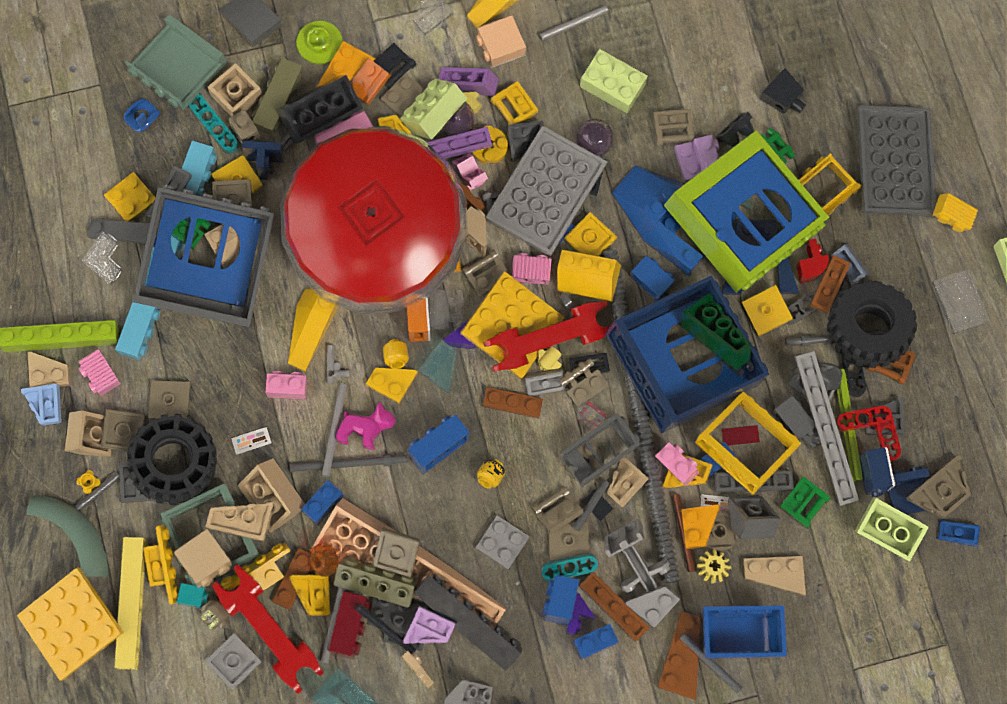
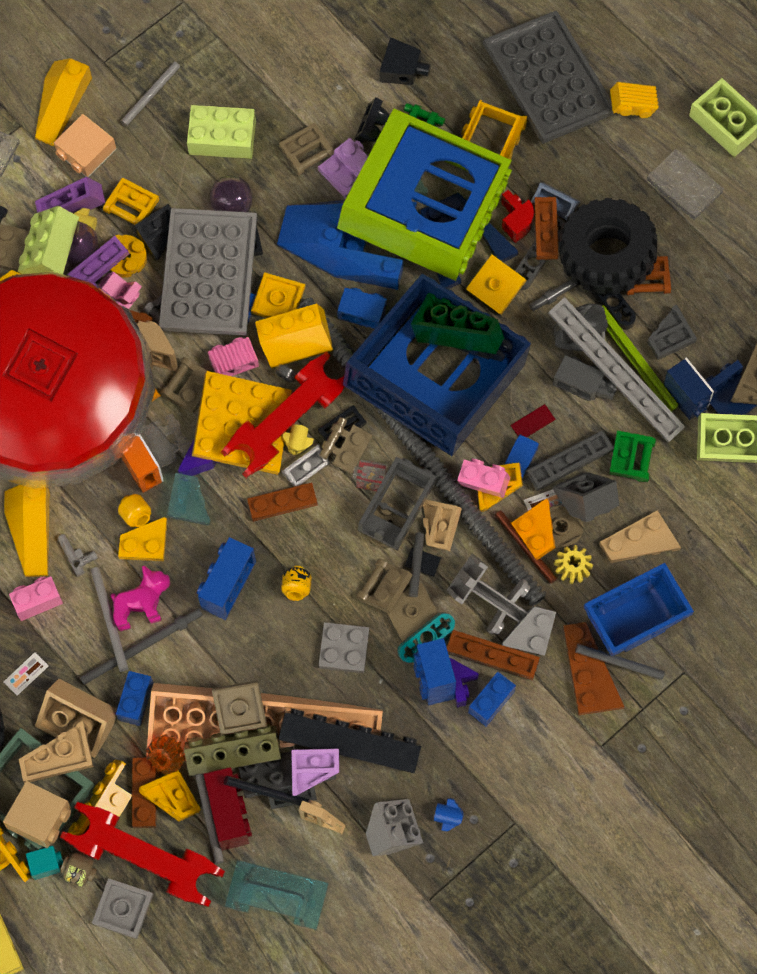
camera: 20 degrees left, 5 degrees down
(733, 465) = (536, 450): yellow window -> none
(880, 424) = (666, 341): red beam -> none

